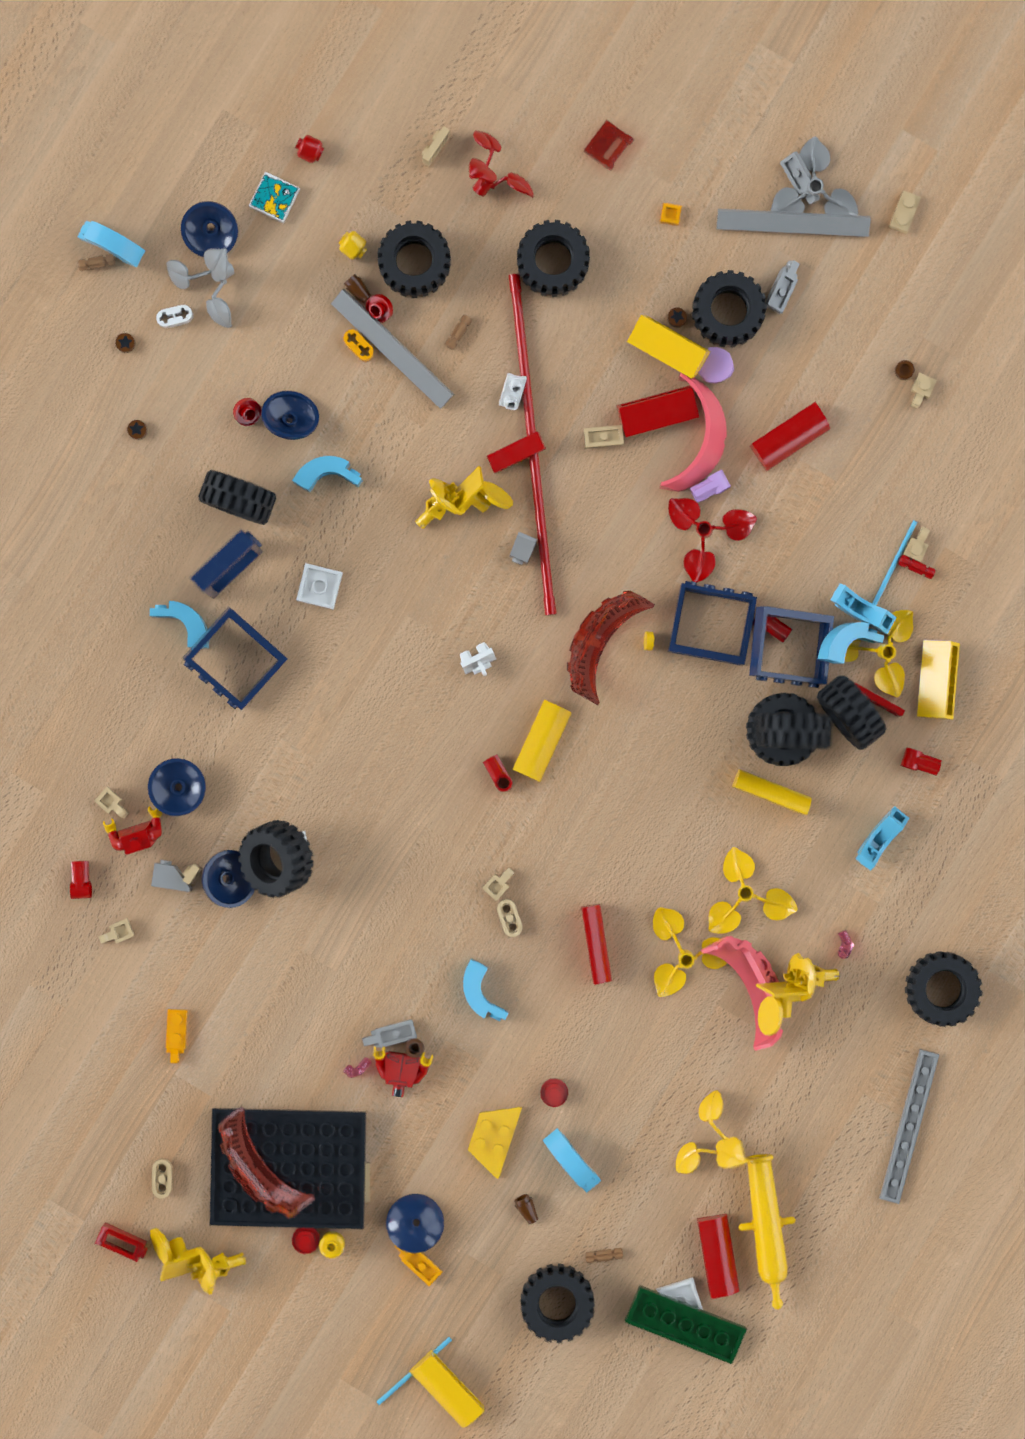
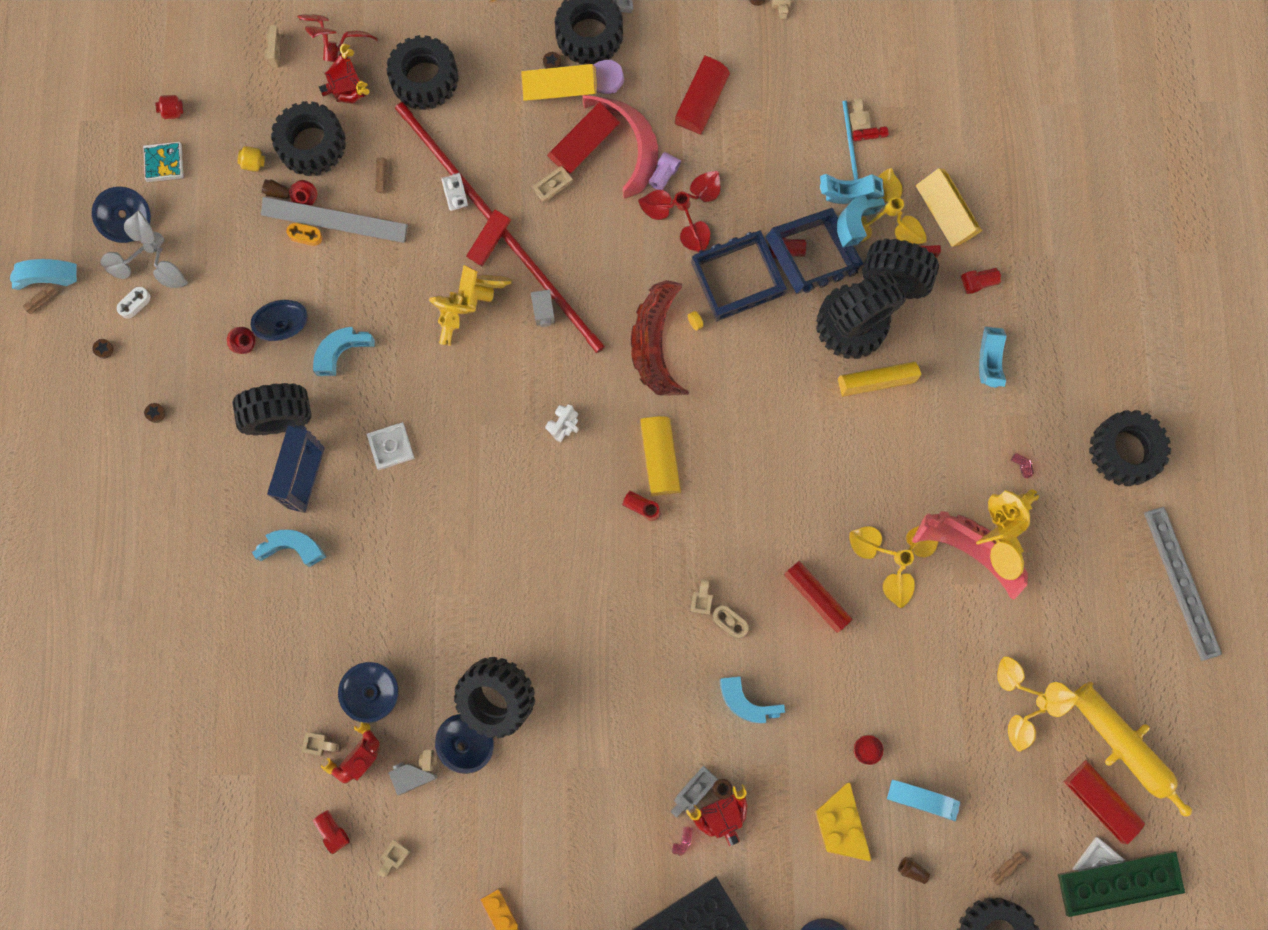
camera: 30 degrees left, 10 degrees down
(206, 677) = (354, 583): dark blue window -> none
(479, 220) = (343, 79): none -> red torso
(738, 867) = (907, 506): yellow plant -> none

